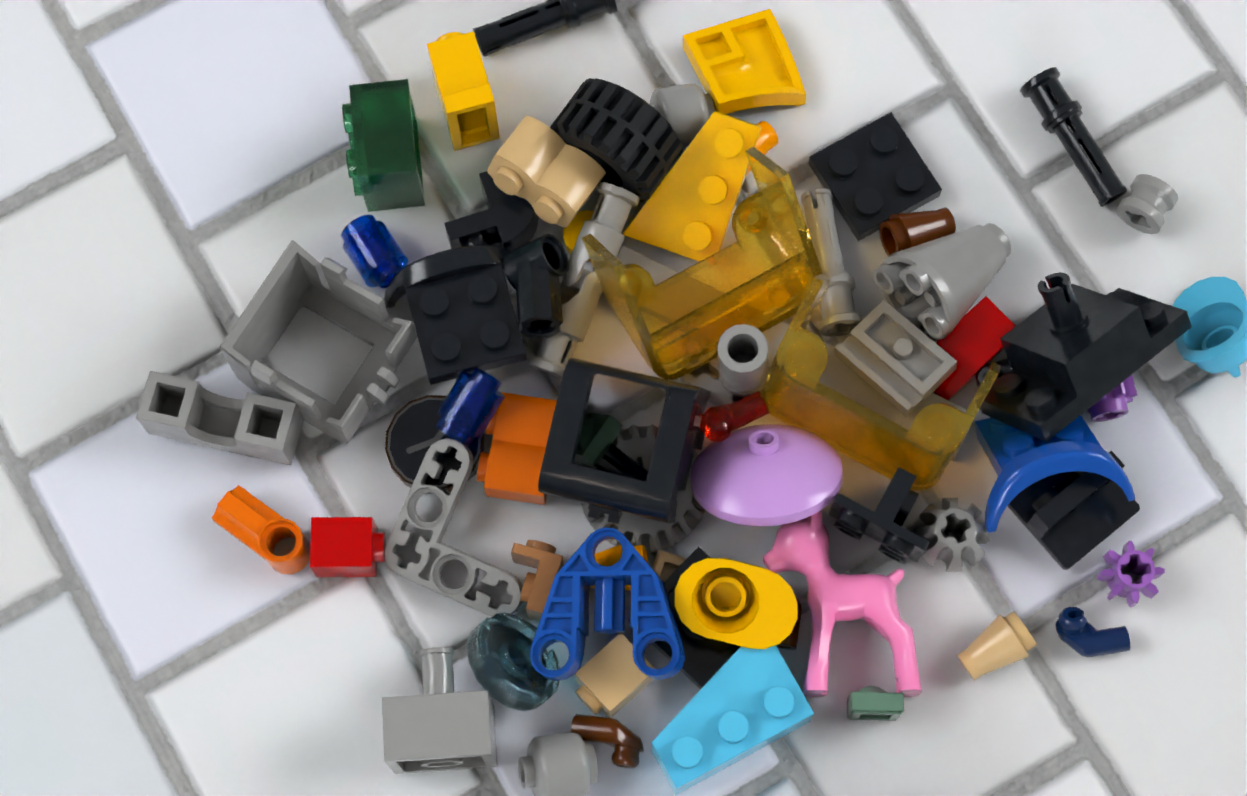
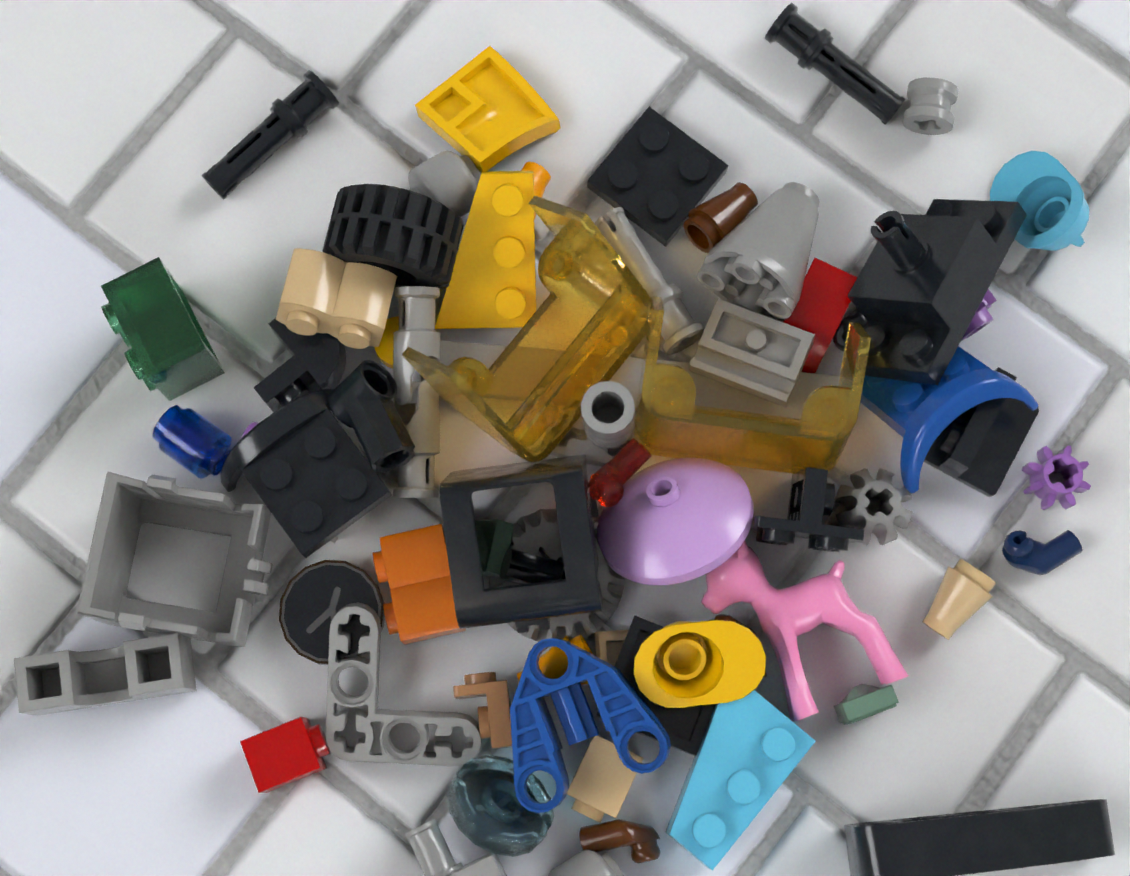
camera: 25 degrees left, 5 degrees up
(261, 529) = (192, 769): orange piece -> none
(463, 89) = (218, 242): yellow hips -> none
(470, 406) = (354, 566): clear blue brick -> none

